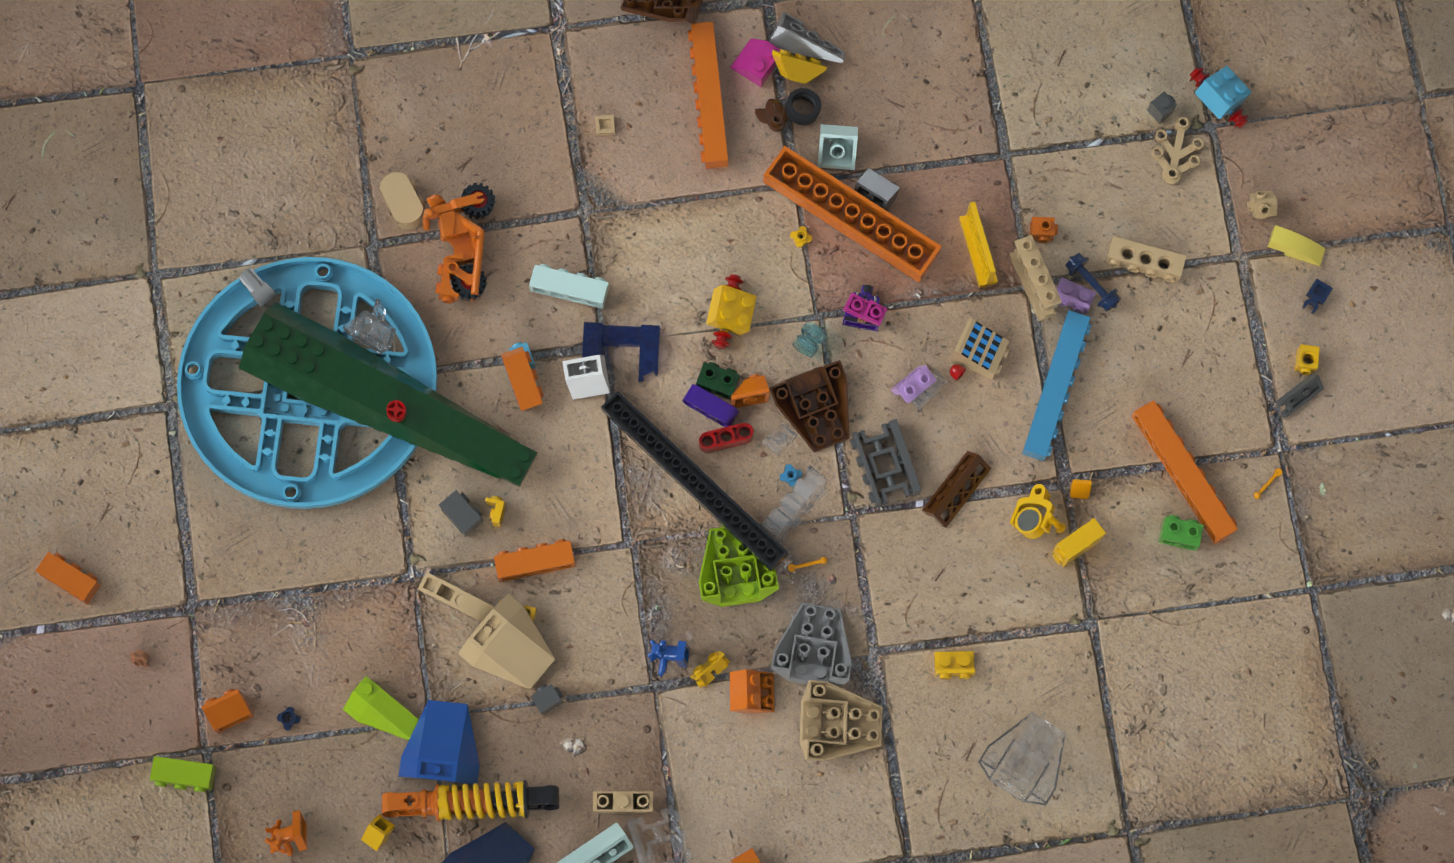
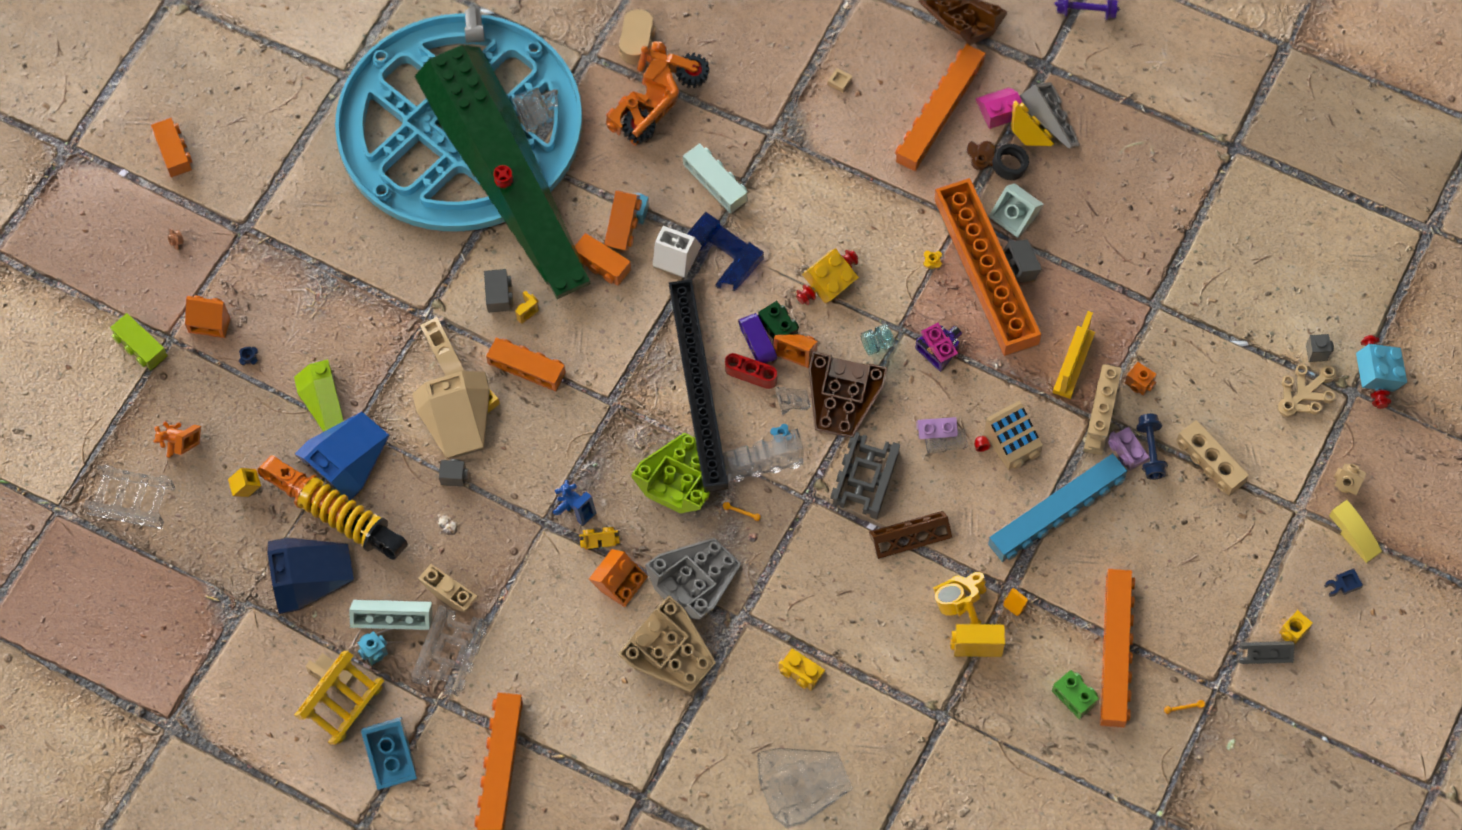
camera: 40 degrees right, 10 degrees down
(528, 424) = (602, 260): none -> orange brick

